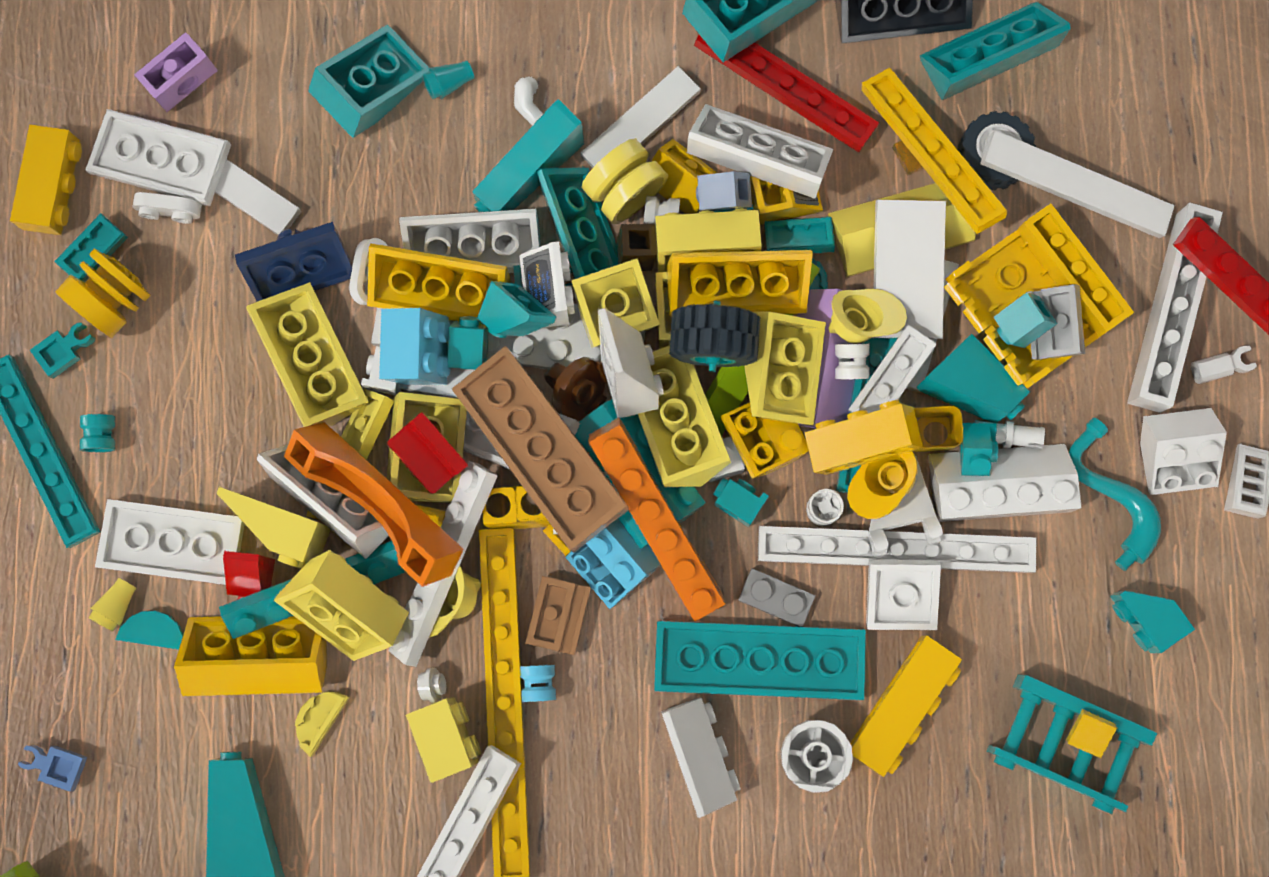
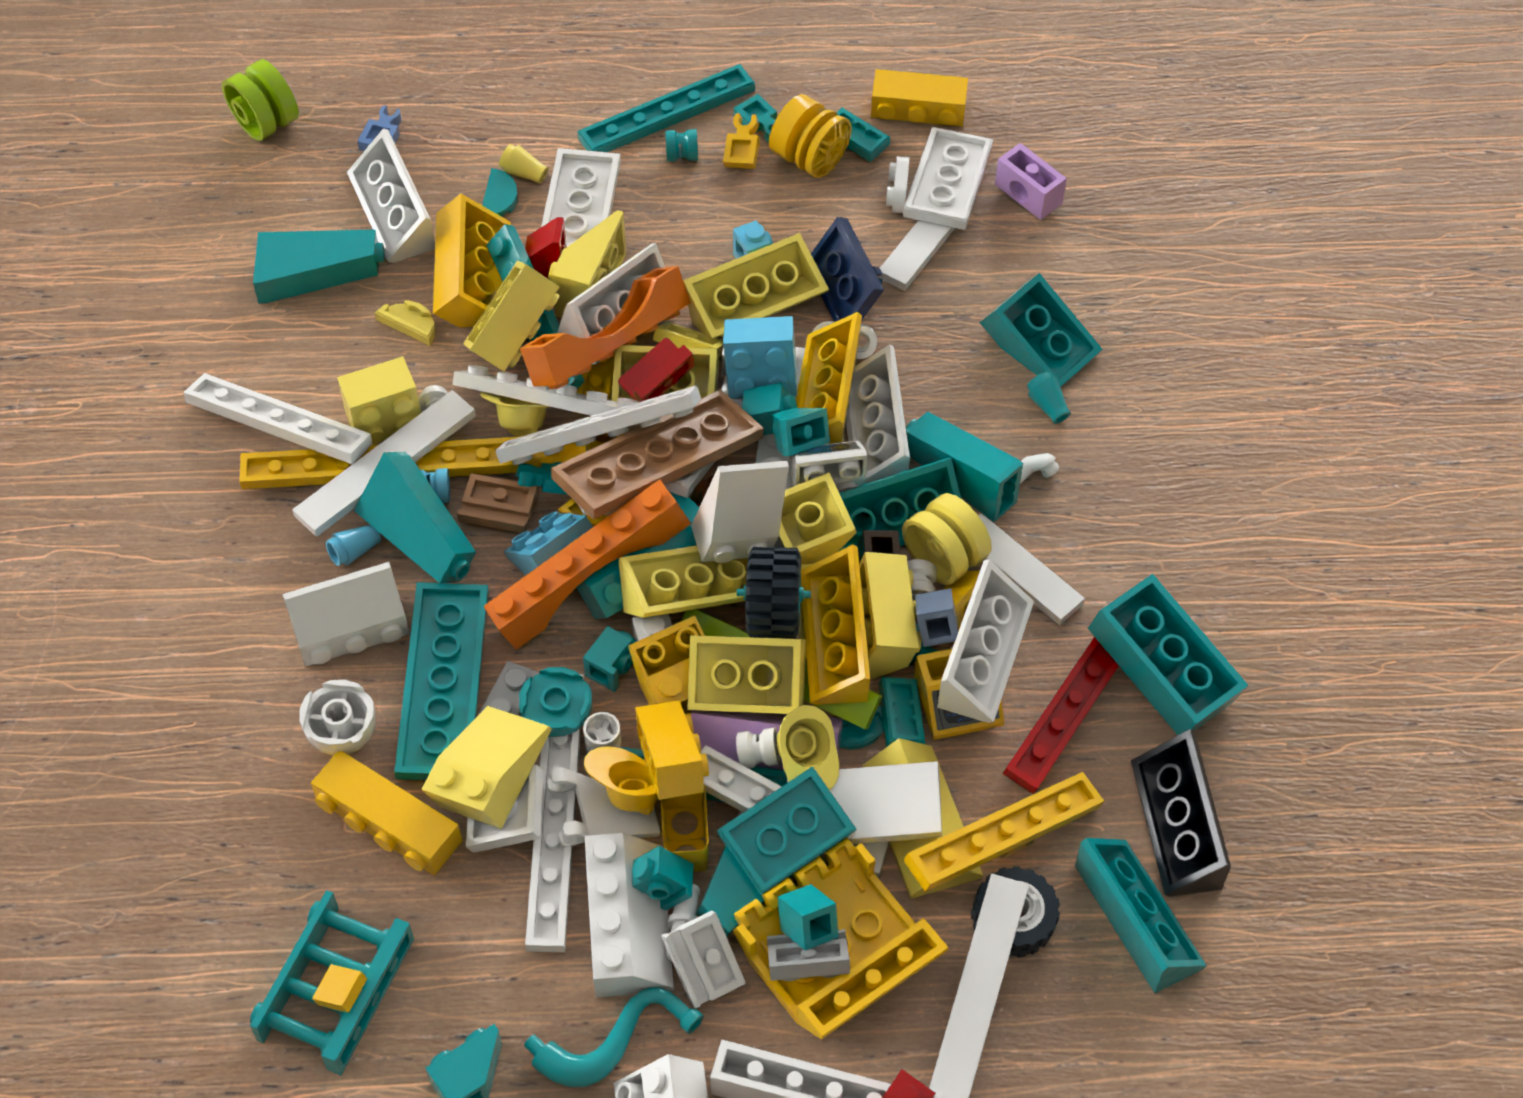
camera: 85 degrees right, 25 degrees down
(104, 369) = (743, 147): none -> yellow plate
(157, 749) = (391, 200): none -> white slope
(247, 359) = (749, 239): none -> medium azure brick
(502, 507) = (611, 422): none -> white plate
(515, 730) = (415, 438): none -> white tile
(533, 558) = (538, 476): none -> teal plate
(588, 694) = (414, 518): none -> teal slope
(603, 759) = (351, 544): none -> medium azure cone
(793, 550) = (556, 699): none -> teal tile
(871, 609) = (486, 766): none -> light yellow slope
(944, 336) = (786, 830): none -> teal tile
(1050, 414) = (703, 959): none -> white plate

